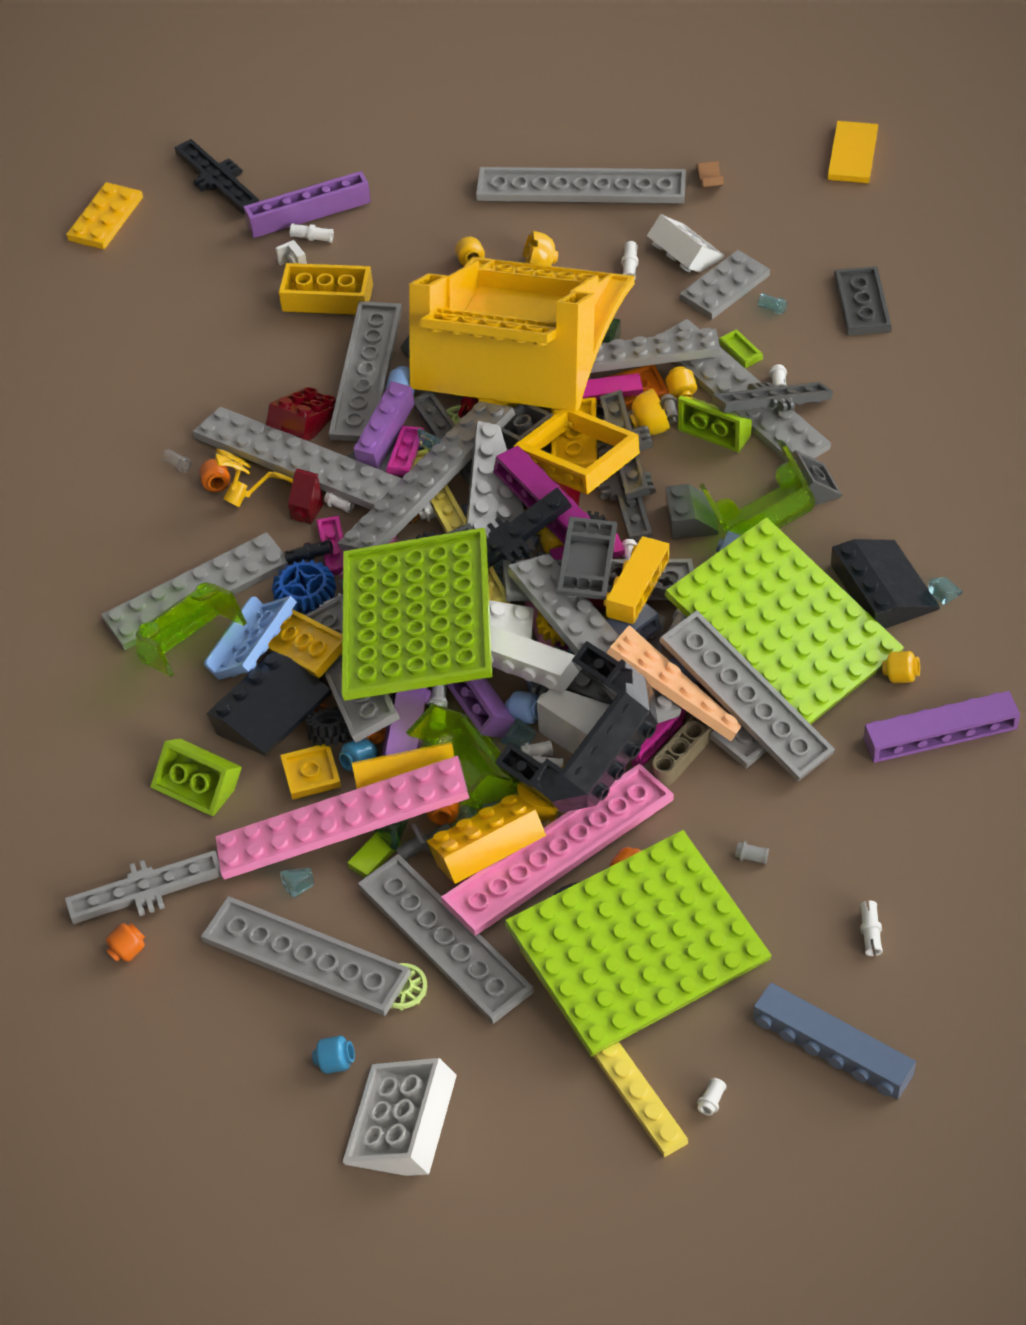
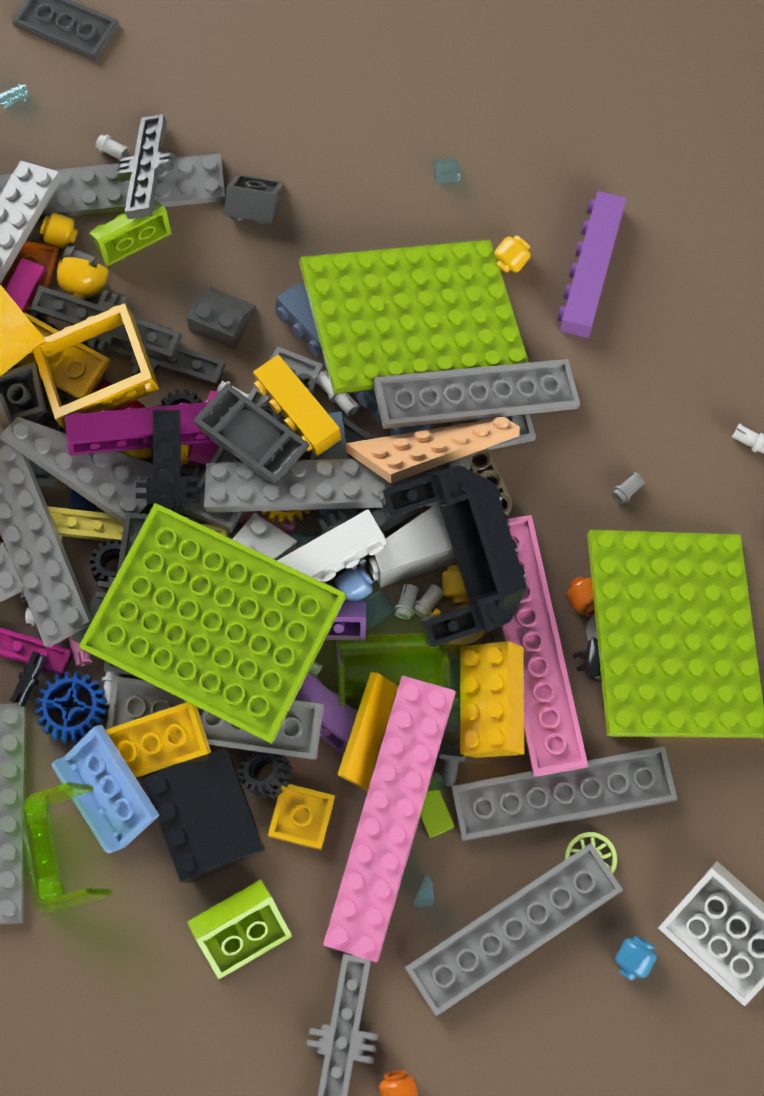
camera: 65 degrees left, 20 degrees up
(355, 752) = (315, 770): dark azure head -> none
(740, 348) = (49, 154): lime tile -> none
(779, 506) = (271, 247): clear neon green windscreen -> none
(882, 580) = (406, 211): black slope -> none

